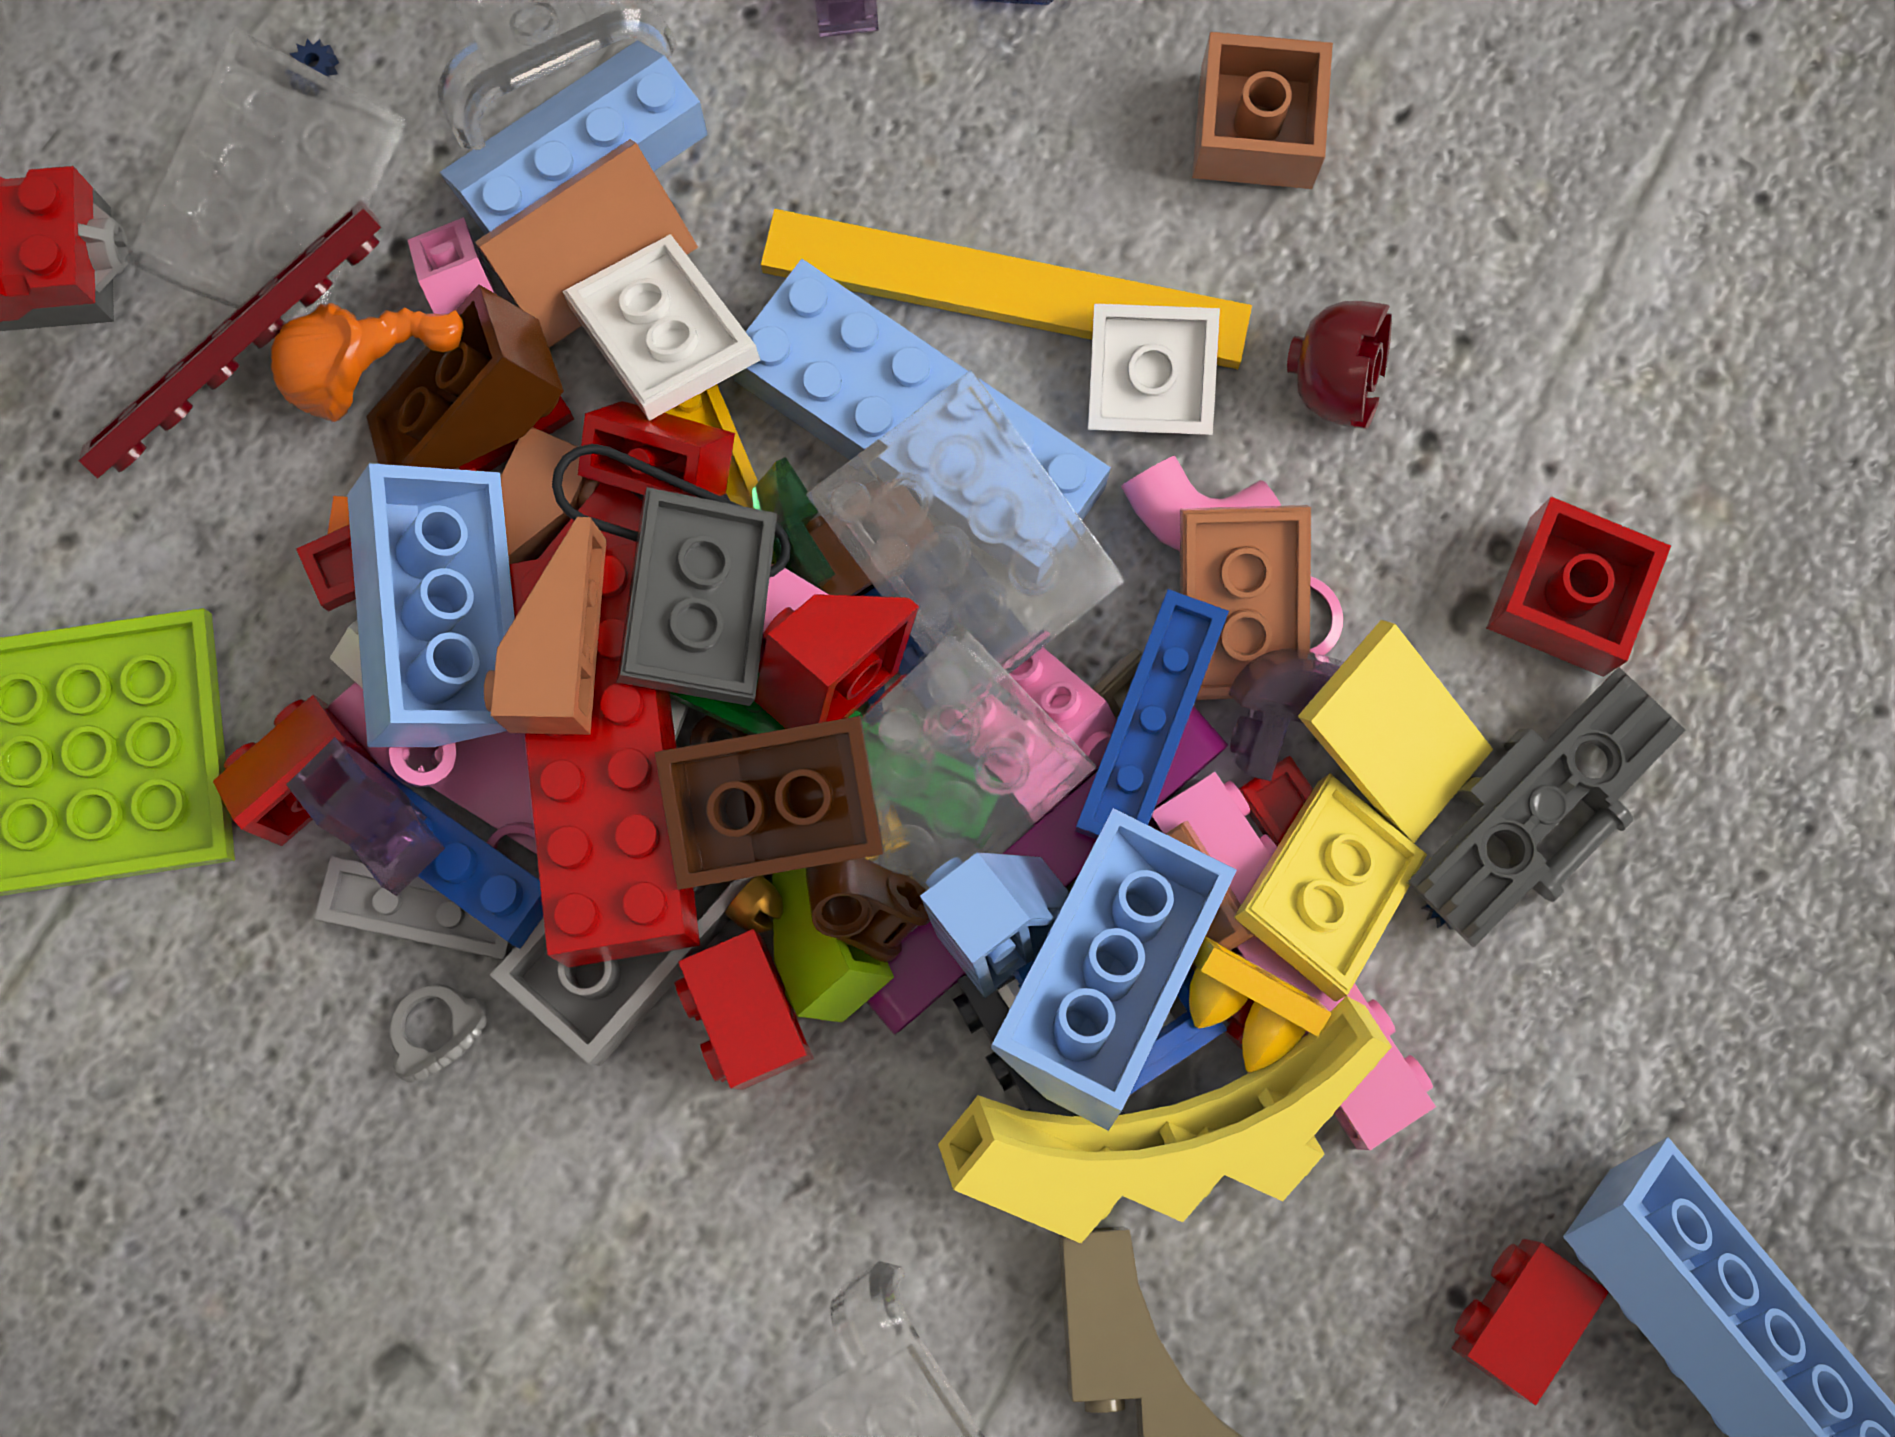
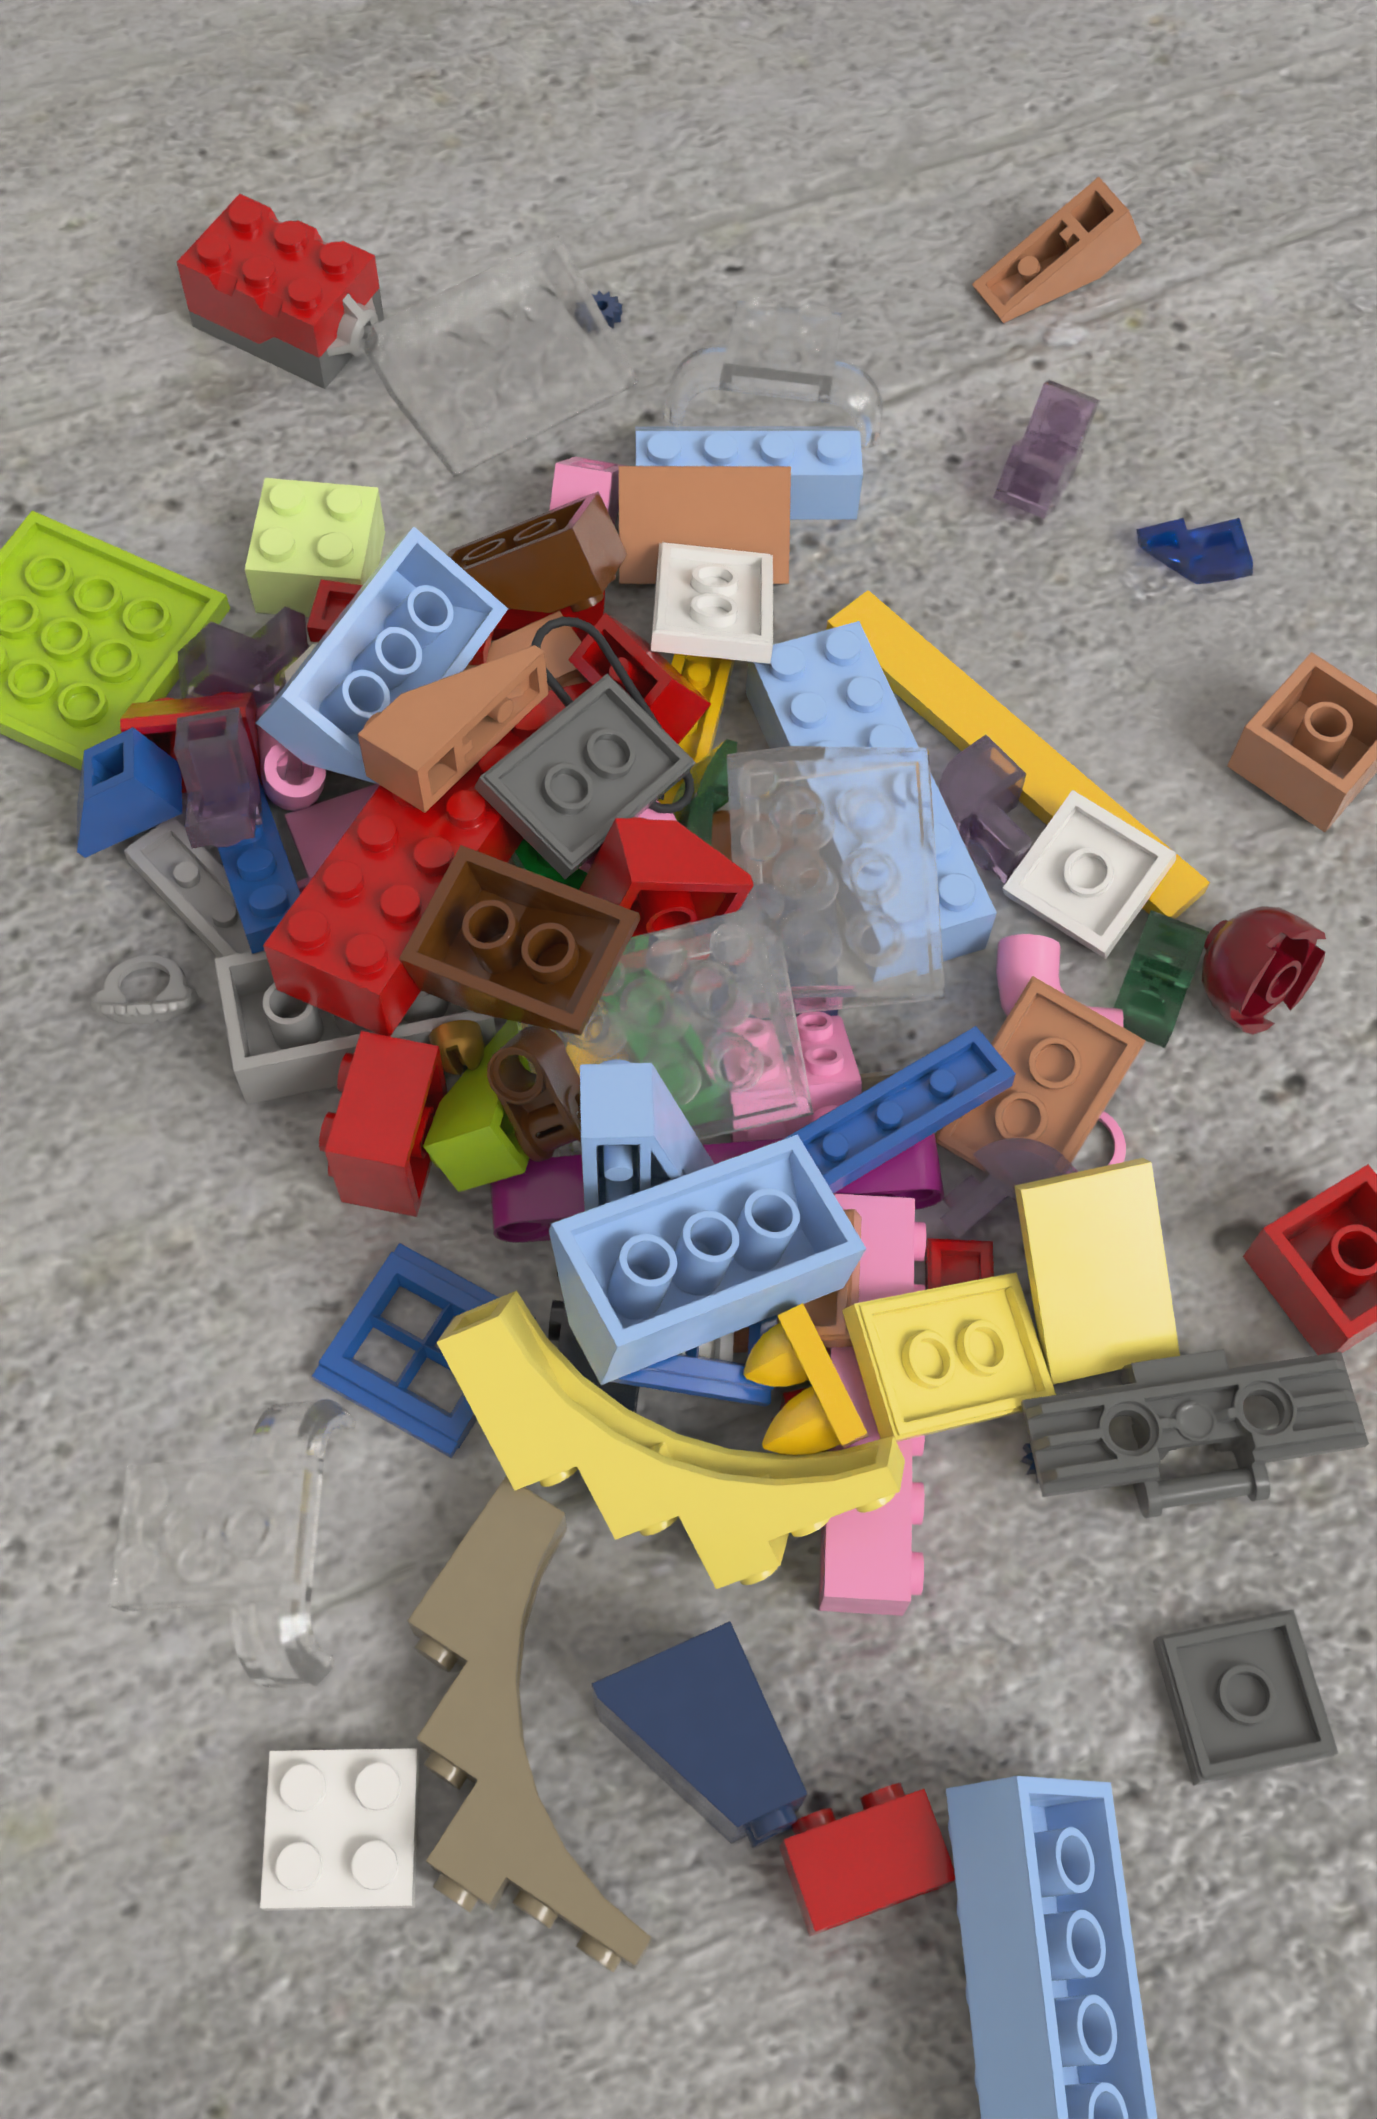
camera: 35 degrees right, 15 degrees down
(213, 358) = (416, 429): dark red plate -> none
(246, 504) = (311, 535): none -> yellowish green brick
(278, 870) = (124, 791): none -> blue slope
(280, 669) = (236, 663): none -> brick
(325, 352) = (450, 471): orange hair -> none
(913, 1225) = (380, 1394): none -> blue piece
(1004, 359) = (979, 792): none -> clear purple brick
(1264, 422) = (1159, 977): none -> clear green slope
(1359, 1322) = (707, 1734): none -> dark blue slope
(1708, 989) = (1244, 1697): none -> dark grey tile

